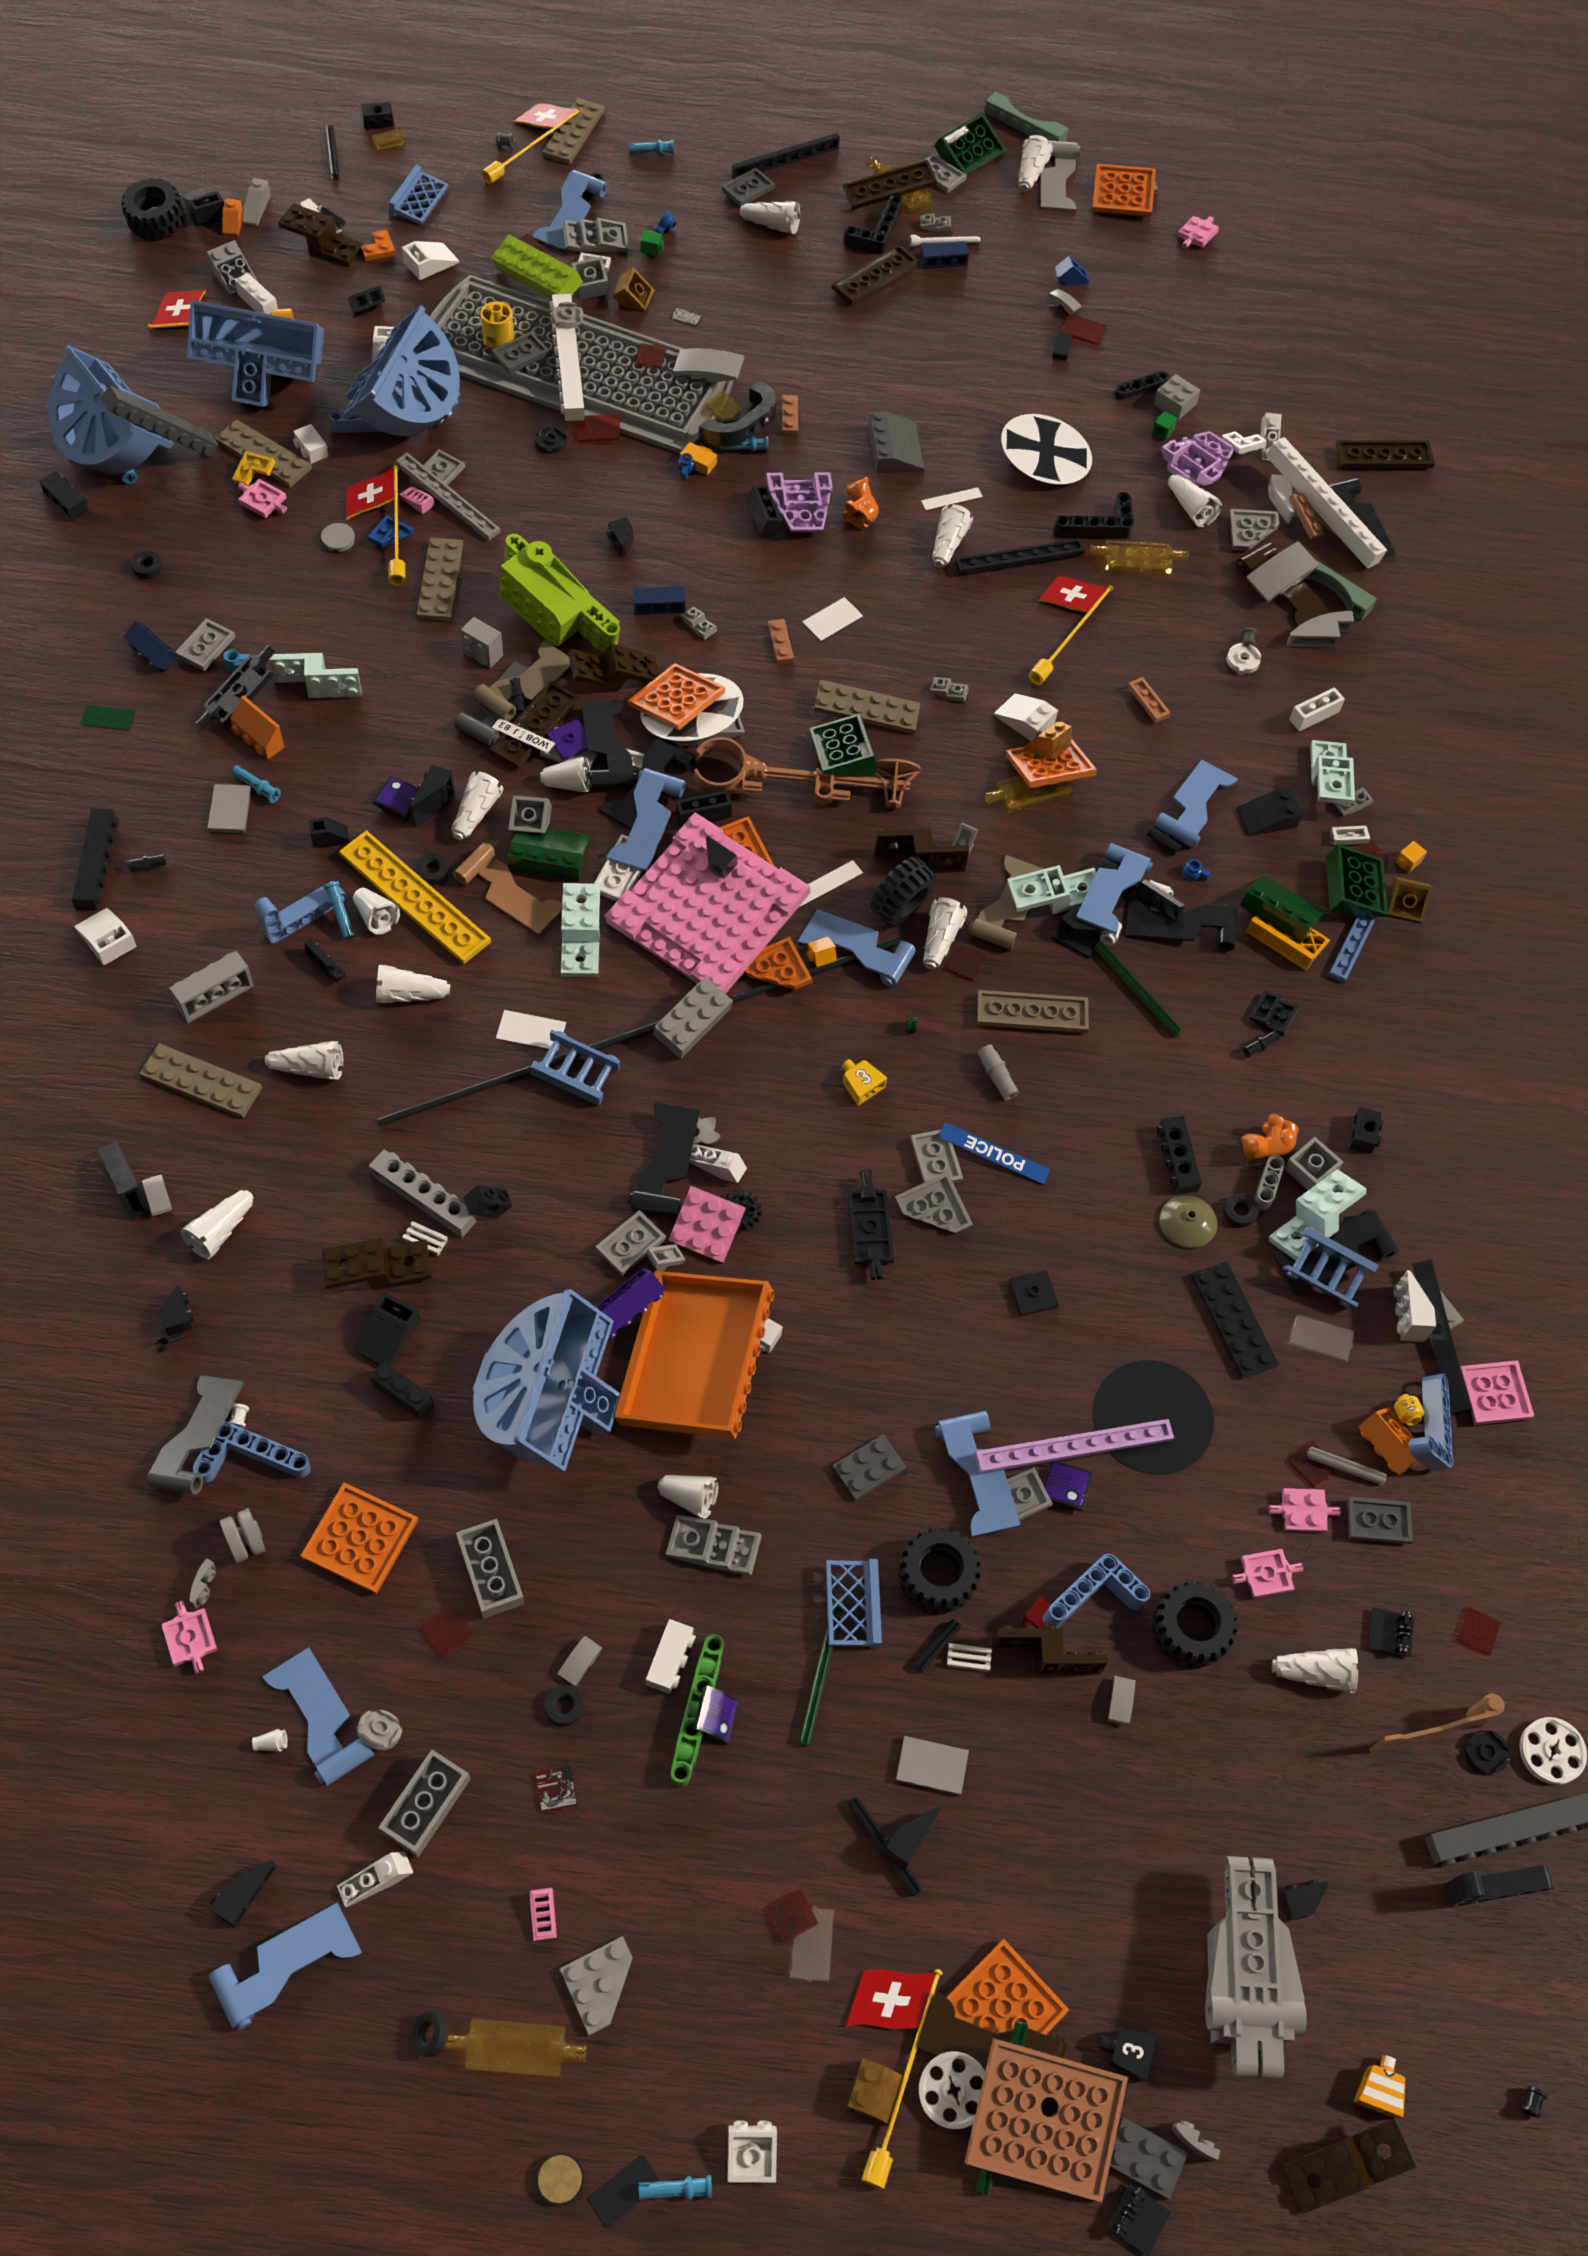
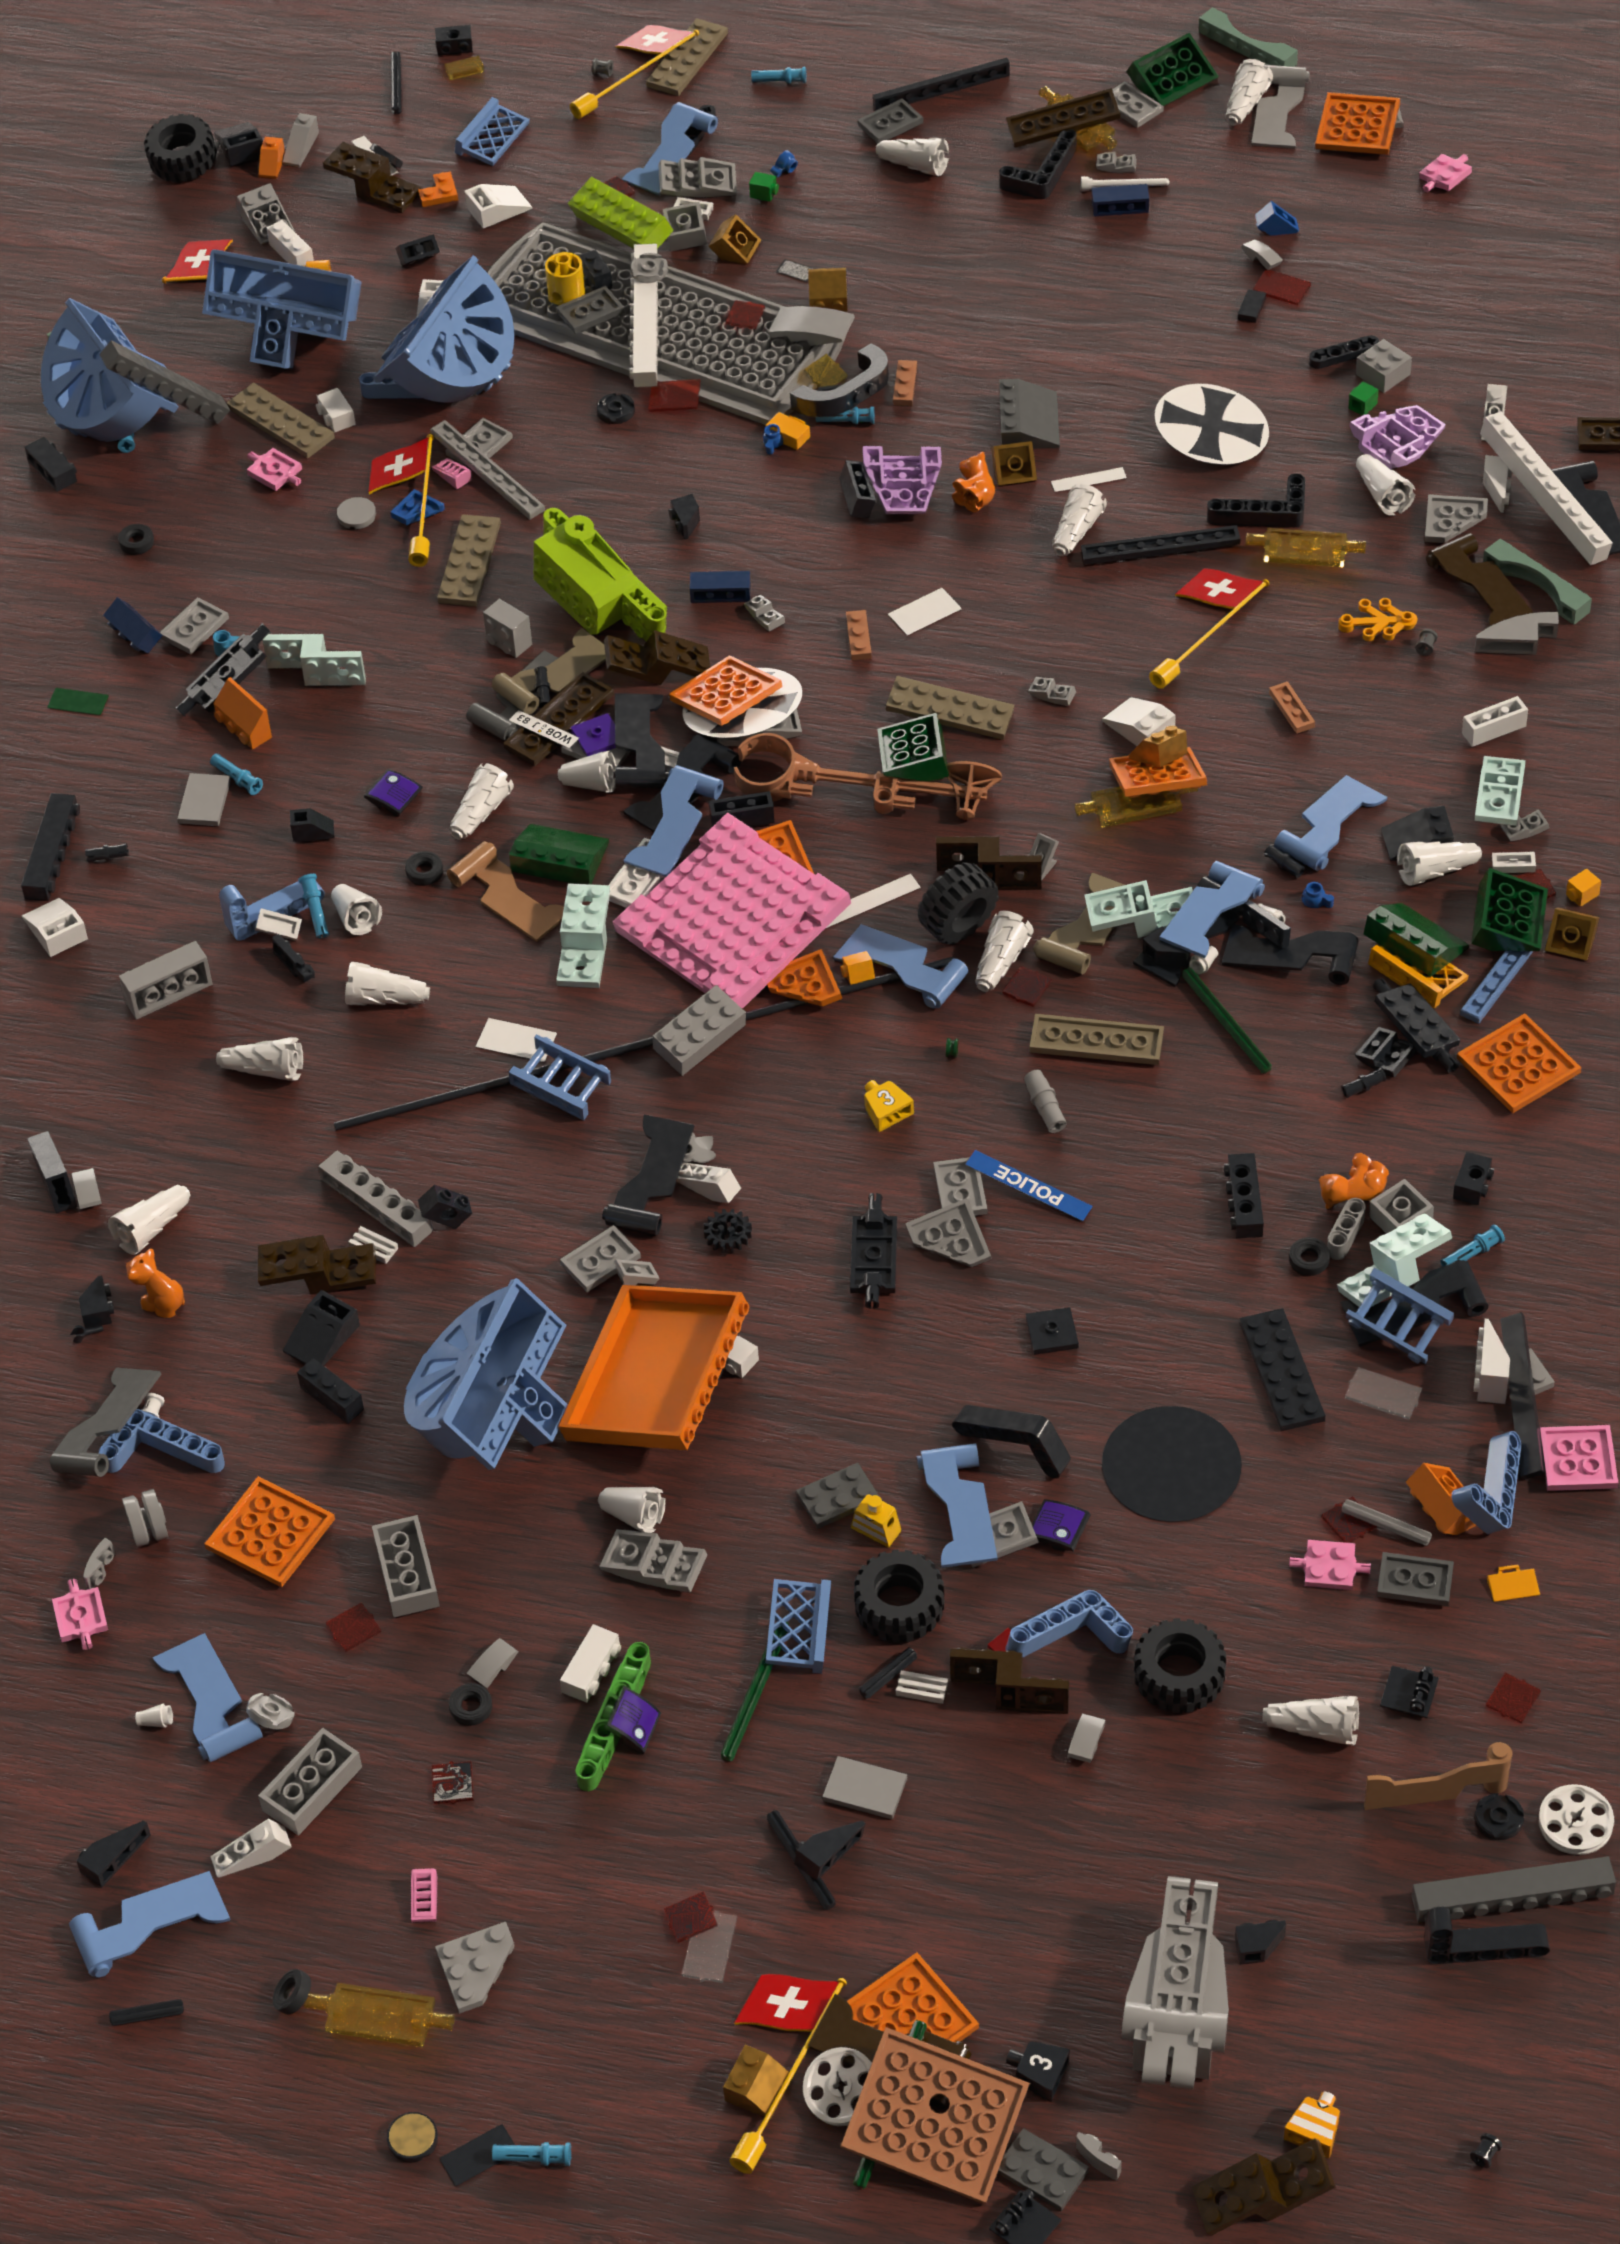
camera: 15 degrees right, 10 degrees down
(201, 1080) = (145, 1077): dark tan plate -> none
(235, 1300) = (162, 1294): none -> orange animal
(250, 464) = (265, 431): yellow plate -> none
(291, 2064) = (146, 2012): none -> black axle
(308, 928) = (277, 923): none -> white tile
(415, 897) = (401, 896): yellow plate -> none
(432, 794) = (431, 789): black slope -> none
(522, 317) = (595, 270): none -> black brick
(530, 814) = (541, 812): light grey slope -> none
(631, 1299) = (590, 1311): dark purple slope -> none
(707, 1224) = (687, 1241): bright pink plate -> none
(717, 332) = (828, 288): none -> pearl gold slope
(720, 858) = (748, 860): black slope -> none
(752, 2152) = (616, 2126): white plate -> none
(875, 274) = (1031, 222): dark brown plate -> none
(890, 485) = (1014, 463): none -> pearl gold slope
(908, 1493) = (876, 1520): none -> yellow torso
(1019, 1398) = (1016, 1428): none -> black beam
(1073, 1446) = (1071, 1482): lavender plate -> none
(1184, 1230) = (1244, 1275): olive dish -> none
(1226, 619) = (1402, 620): none -> light orange plant
(1243, 444) = (1456, 421): white plate -> none
(1243, 666) = (1416, 673): white plate -> none
(1267, 1573) = (1274, 1624): bright pink plate -> none
(1282, 571) = (1478, 565): light grey slope -> none
(1286, 836) = (1432, 860): none -> white cone
(1297, 985) = (1418, 1022): none -> black plate
(1306, 516) = (1521, 503): nougat plate -> none
(1382, 1190) = (1479, 1244): none -> dark azure pin
(1385, 1020) = (1518, 1063): none -> orange plate
(1409, 1410) = (1469, 1468): yellow head -> none
(1459, 1518) = (1513, 1584): none -> light orange piece

